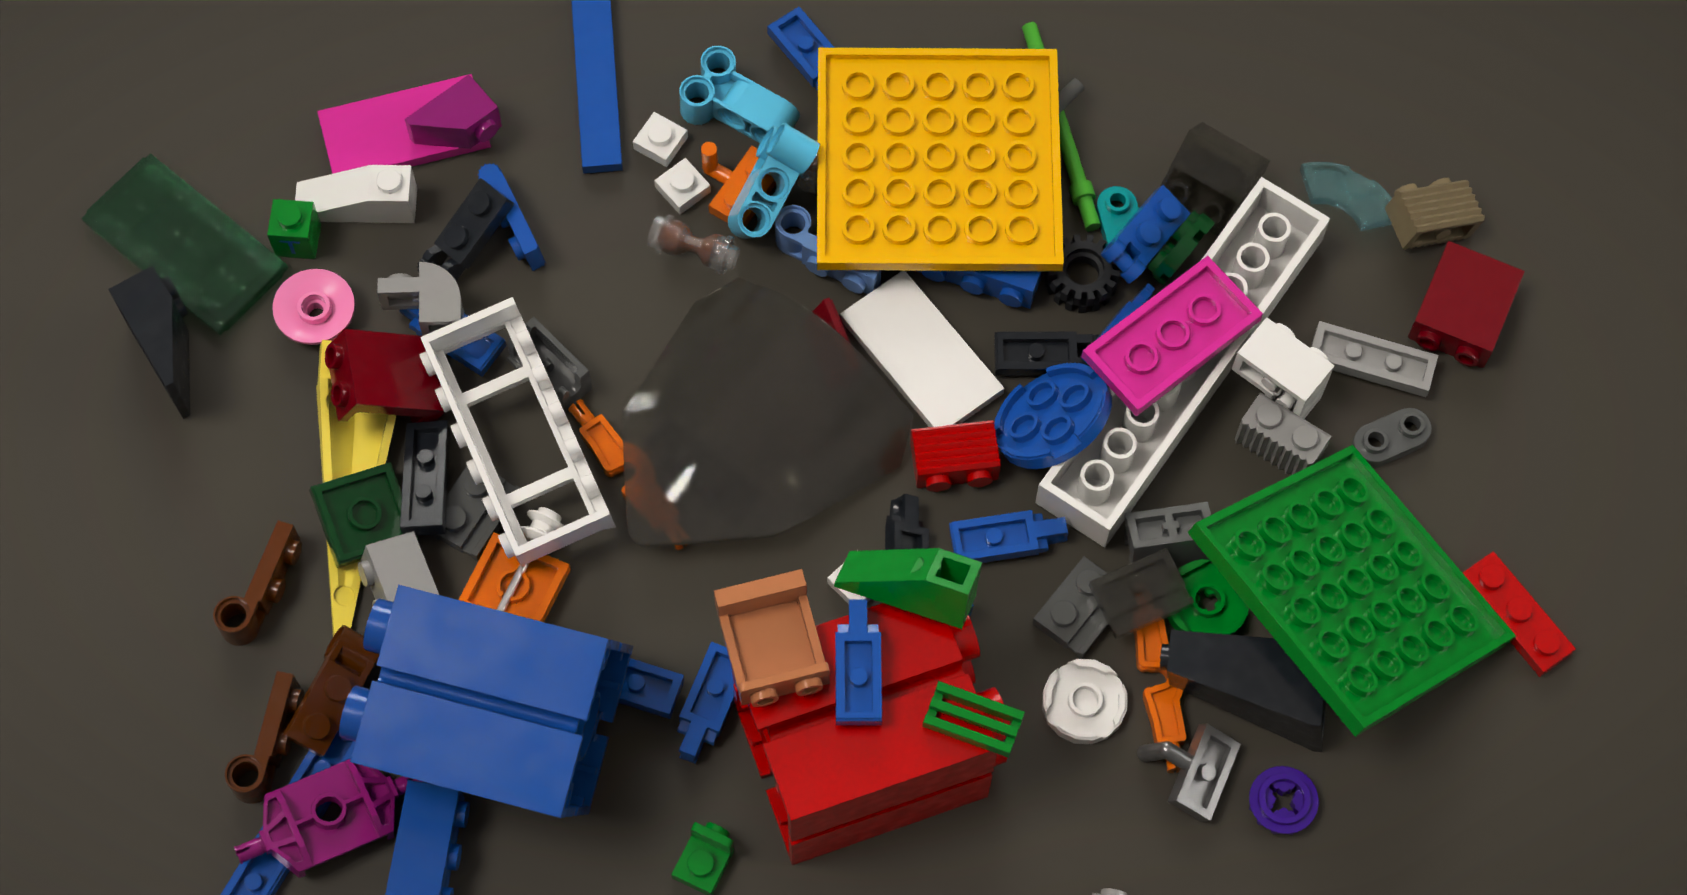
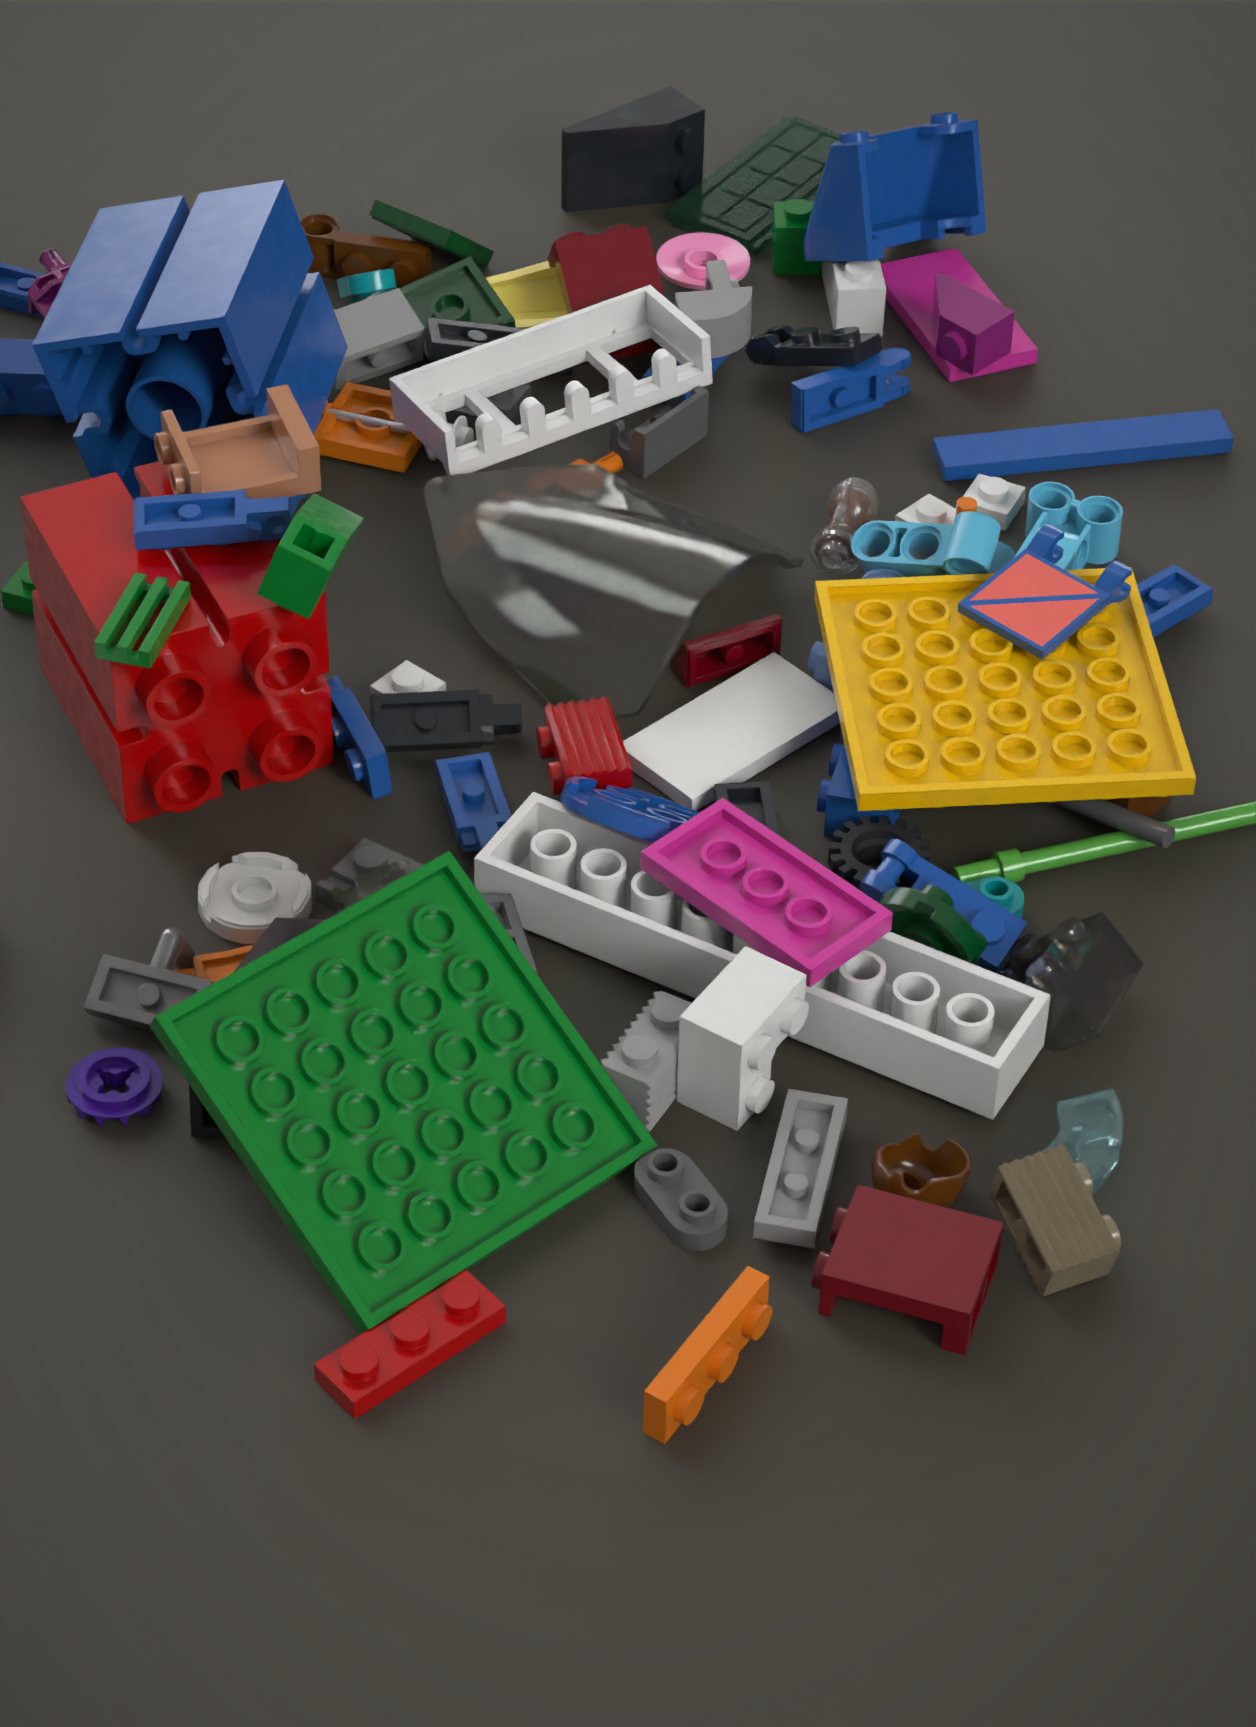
camera: 85 degrees right, 25 degrees down
(250, 520) = (430, 233): none -> dark green tile
(311, 153) = (897, 190): none -> blue windscreen
(321, 579) = (363, 285): none -> teal plate
(862, 114) = (1040, 602): none -> flag
(1388, 284) = (922, 1171): none -> reddish brown hair
(1538, 431) = (707, 1355): none -> orange plate

